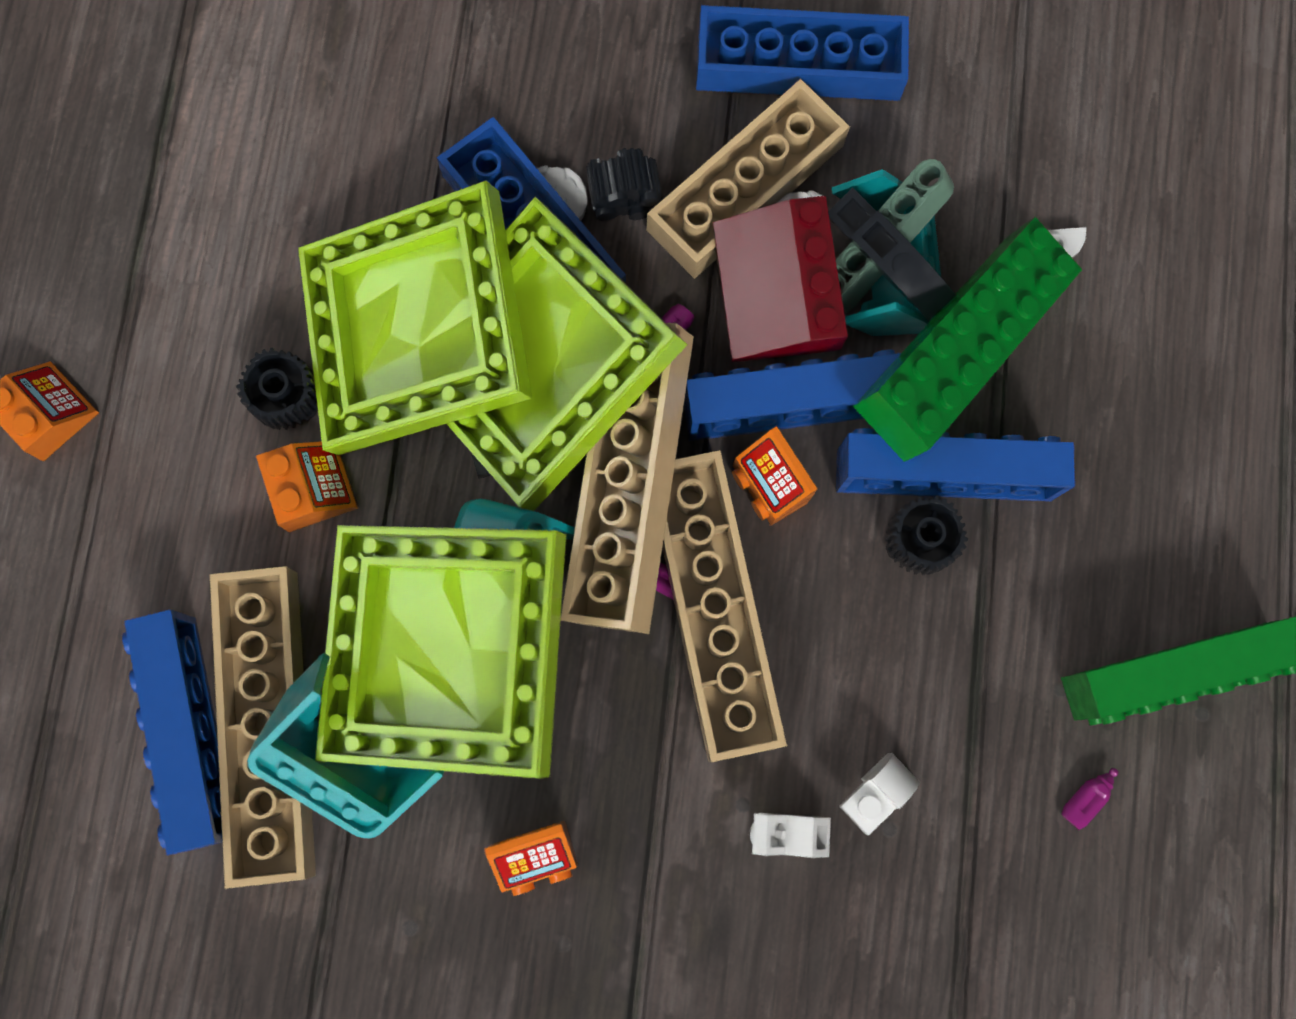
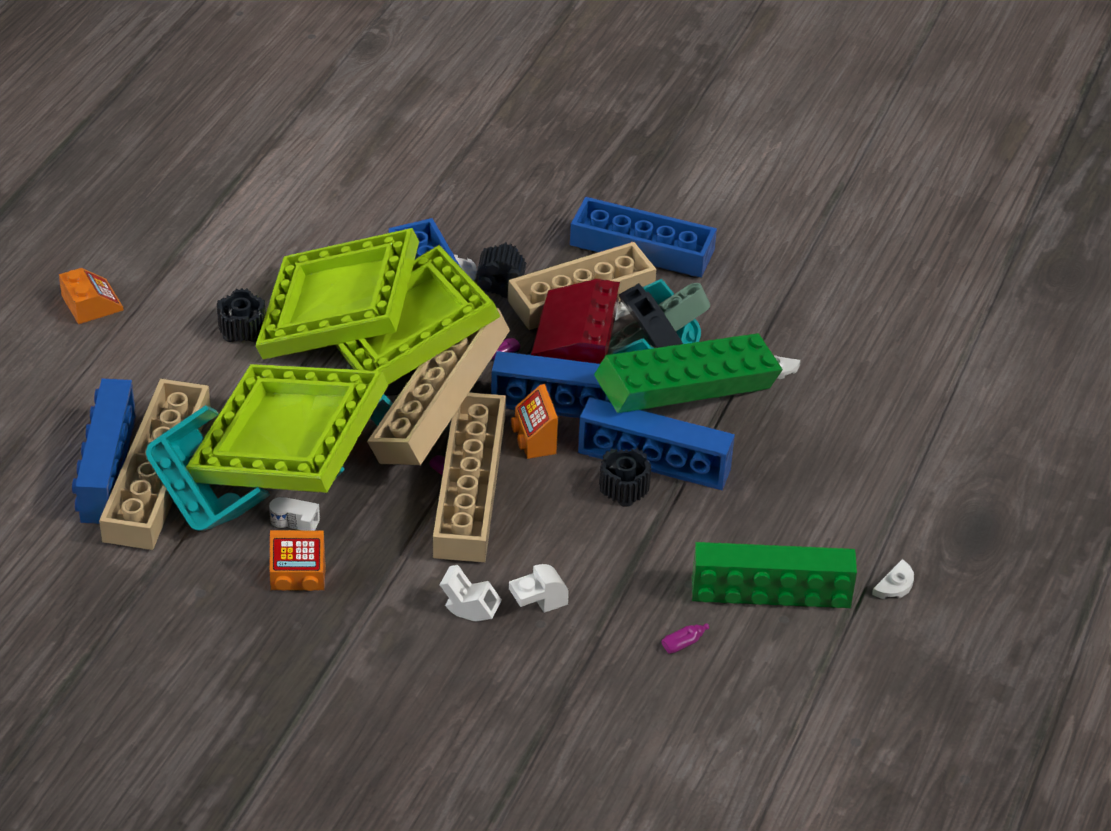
camera: 20 degrees right, 35 degrees down
(305, 484) = (231, 360): orange slope -> none

